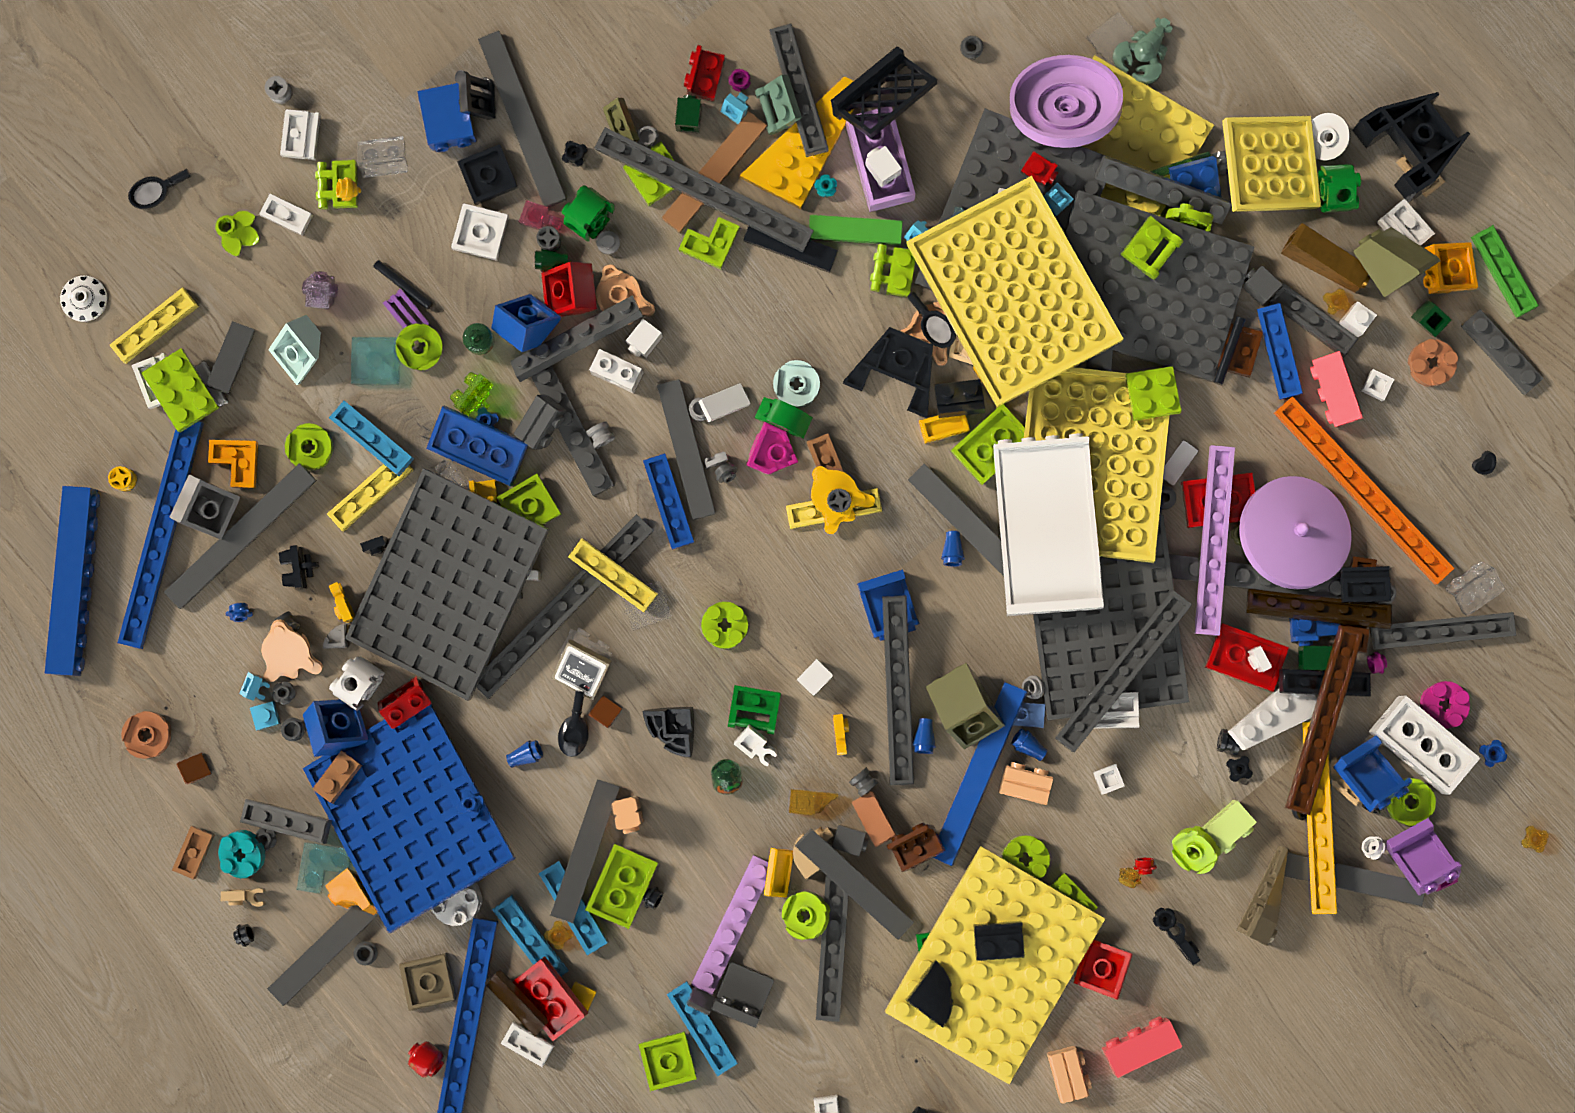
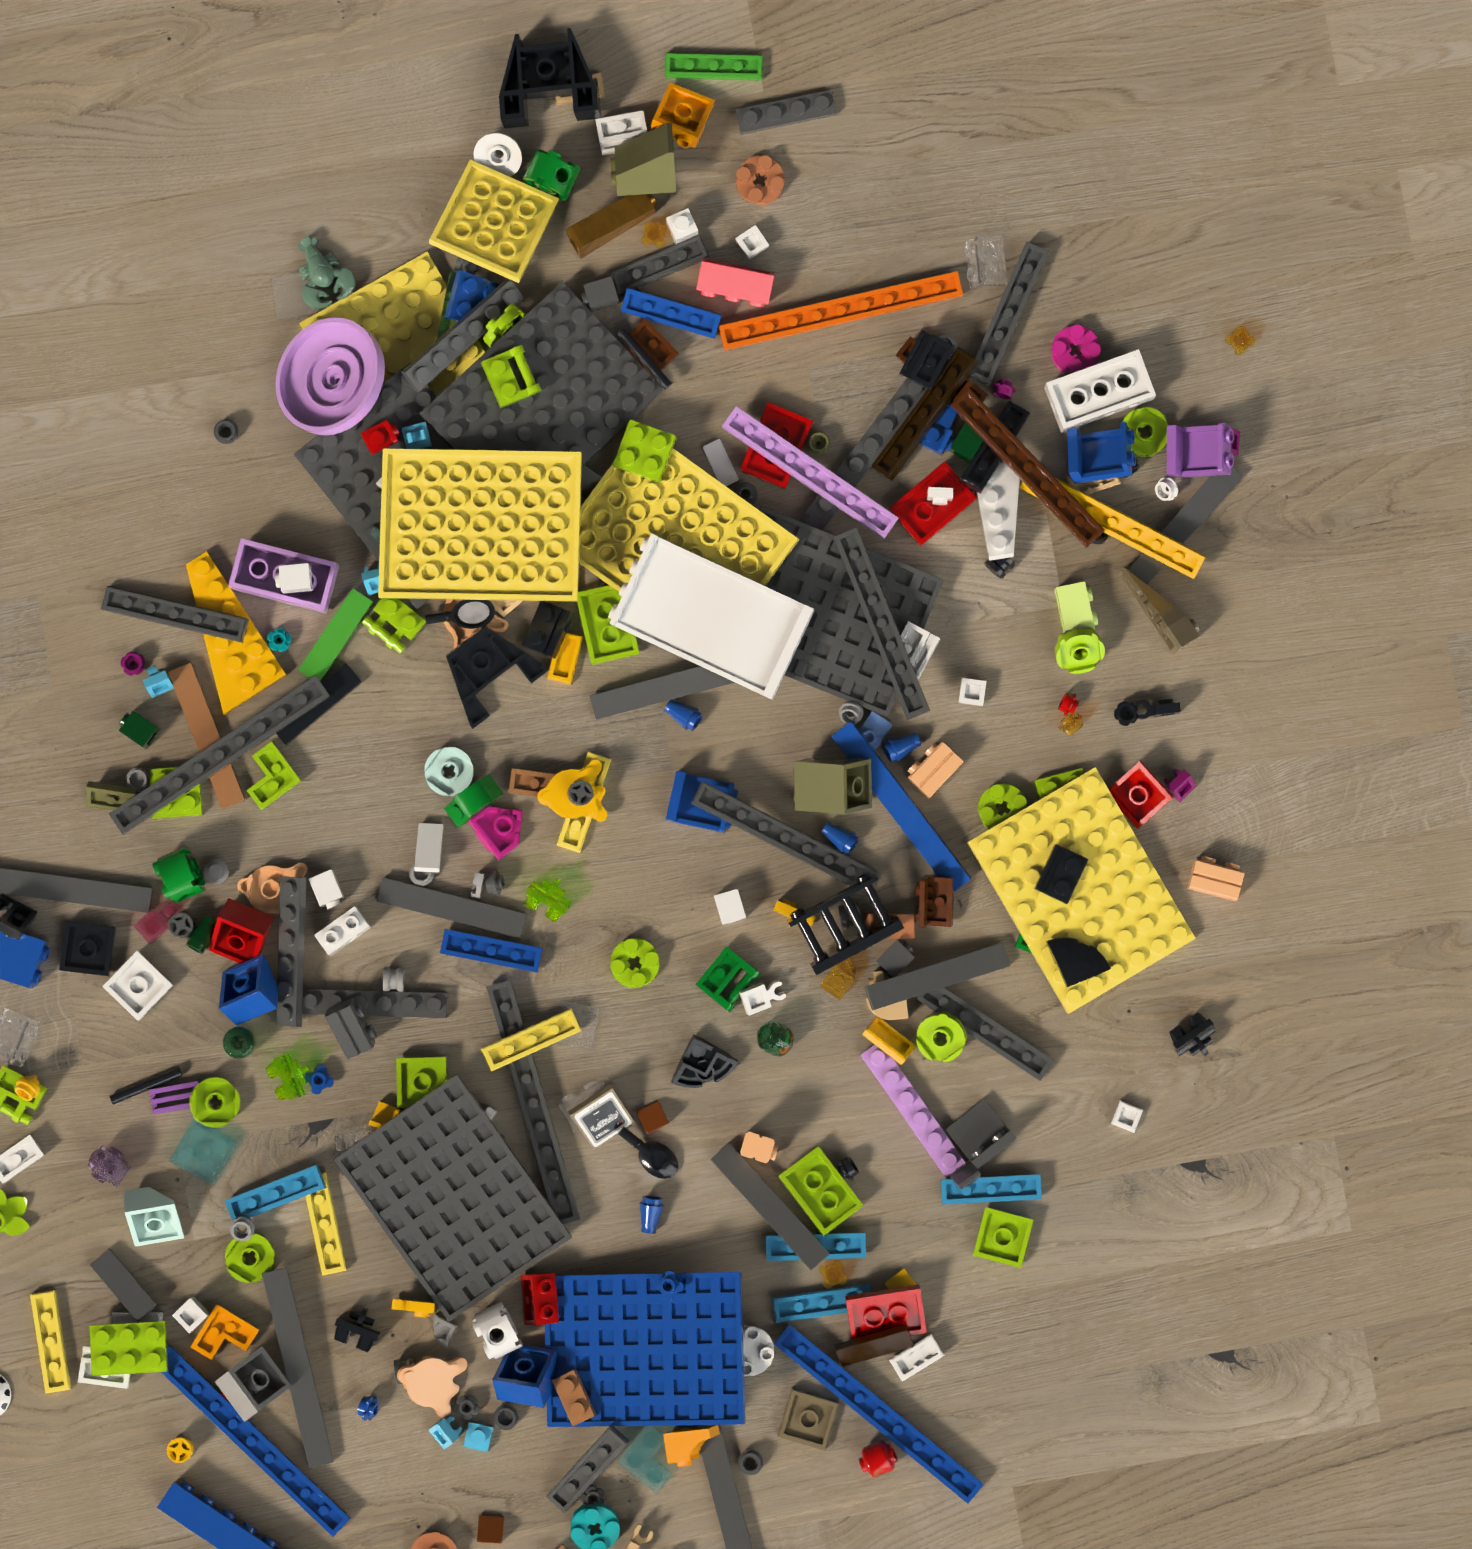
camera: 65 degrees left, 0 degrees up
(236, 425) = (191, 1314): none -> white panel
(321, 426) = (242, 1235): none -> light grey plate
(375, 546) = (378, 1246): black plate -> none
(477, 445) = (338, 1099): blue tile -> none
(574, 147) = (106, 856): black plate -> none
(704, 74) = (108, 692): red bracket -> none
(740, 523) = (549, 894): none -> clear neon green hips
(783, 101) = (180, 635): sand green plate -> none
(833, 793) = (844, 948): none -> black fence
(870, 84) = (206, 544): black fence -> none
(1131, 1000) = (1181, 785): none -> magenta tile
(1141, 1046) = (1227, 799): coral brick -> none
(1245, 772) = (1035, 564): black plate -> none
(1295, 532) = (844, 395): lavender container -> none
(1431, 318) = (719, 160): dark green brick -> none
(1485, 464) = (879, 187): black piece -> none
(1500, 755) = (1148, 327): blue plate -> none

